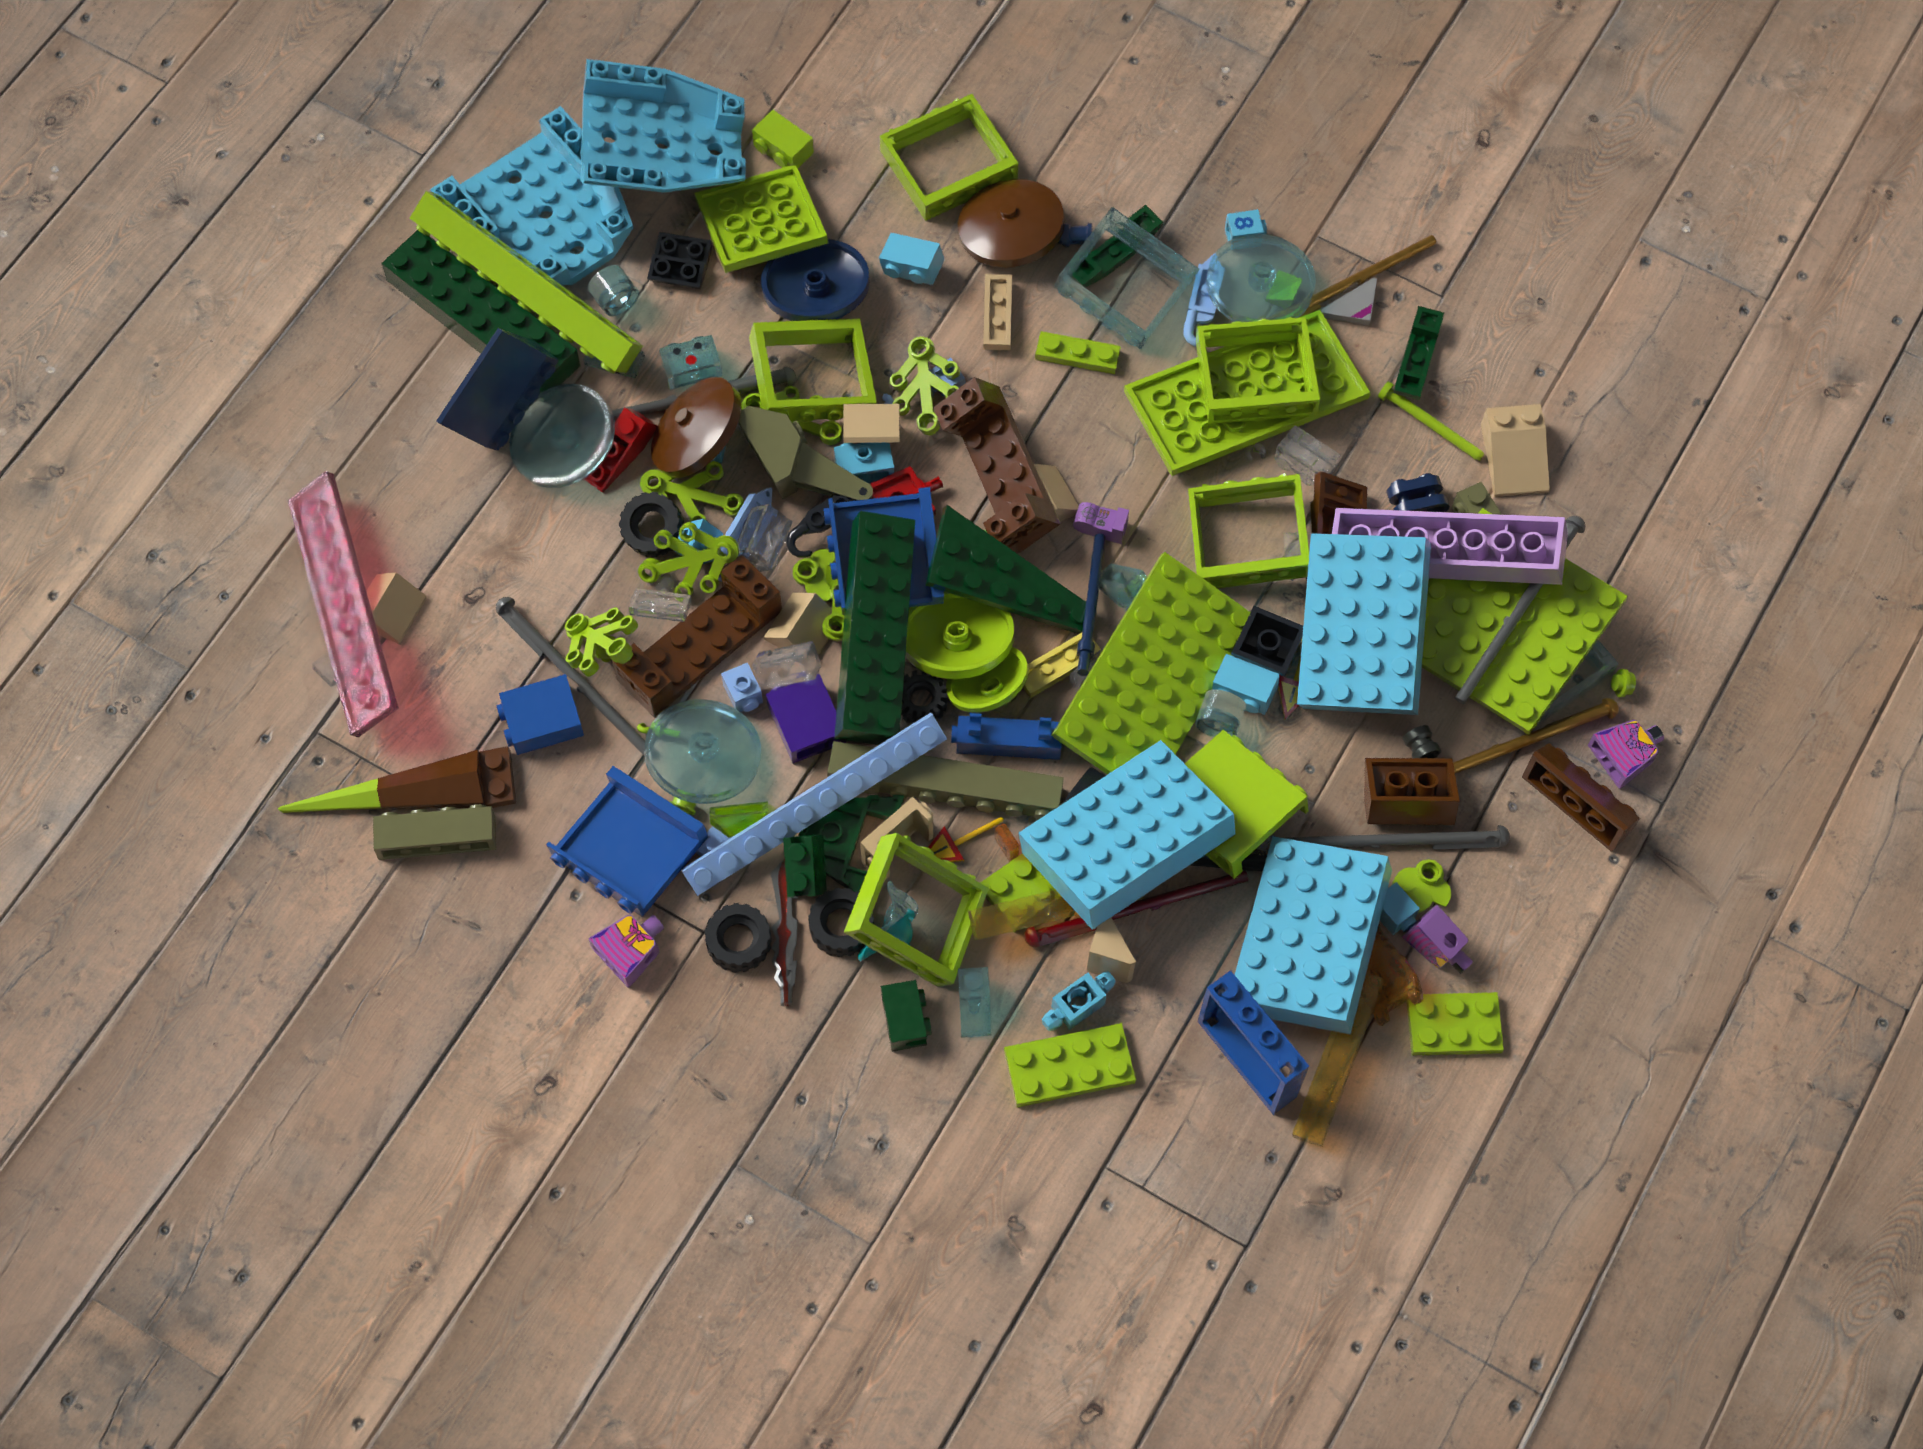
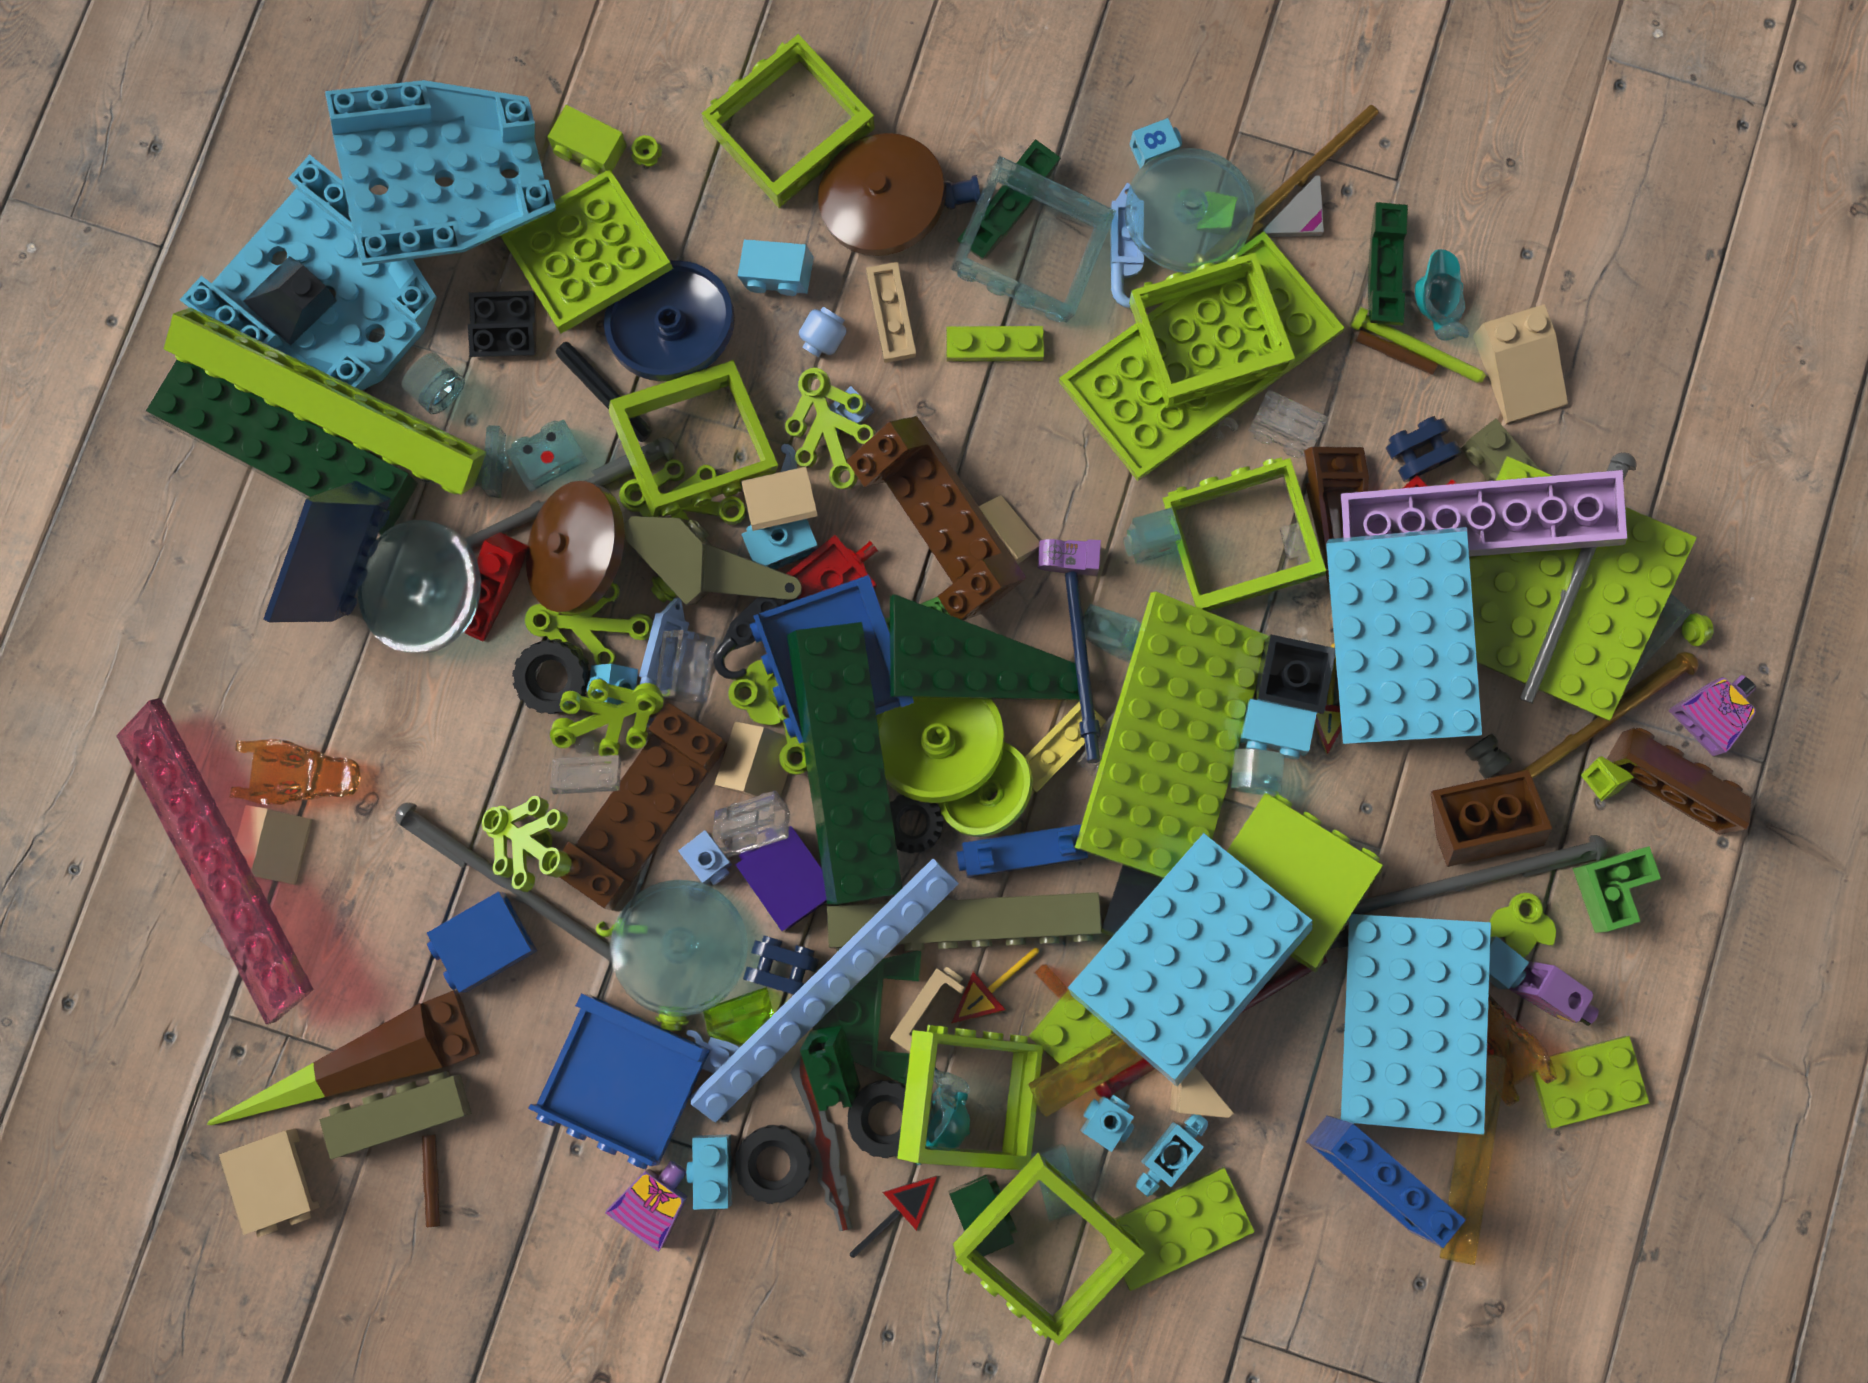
camera: 15 degrees left, 15 degrees up
(317, 861) = (268, 1183): none -> tan panel
(422, 554) = (292, 773): none -> clear orange animal
(449, 892) = (430, 1181): none -> reddish brown piece
(517, 208) = (290, 300): none -> black slope
(647, 358) = (495, 461): none -> clear light blue plate
(684, 930) = (711, 1171): none -> medium azure brick
(744, 318) = (597, 385): none -> black axle
(760, 479) = (662, 590): none -> lime plate
(780, 771) = (769, 950): none -> dark blue brick
(826, 152) = (646, 143): none -> lime plate
(846, 996) = (909, 1201): none -> piece
(938, 314) = (822, 332): none -> light blue head
(993, 1012) = (1089, 1293): none -> lime window
(1029, 961) = (1108, 1135): none -> medium azure brick
(1172, 515) = (1152, 536): none -> clear light blue brick
(1412, 423) = (1396, 352): none -> reddish brown piece
(1458, 382) = (1441, 295): none -> clear light blue hair
(1504, 860) = (1607, 886): none -> bright green brick
(1520, 783) = (1606, 778): none -> lime slope

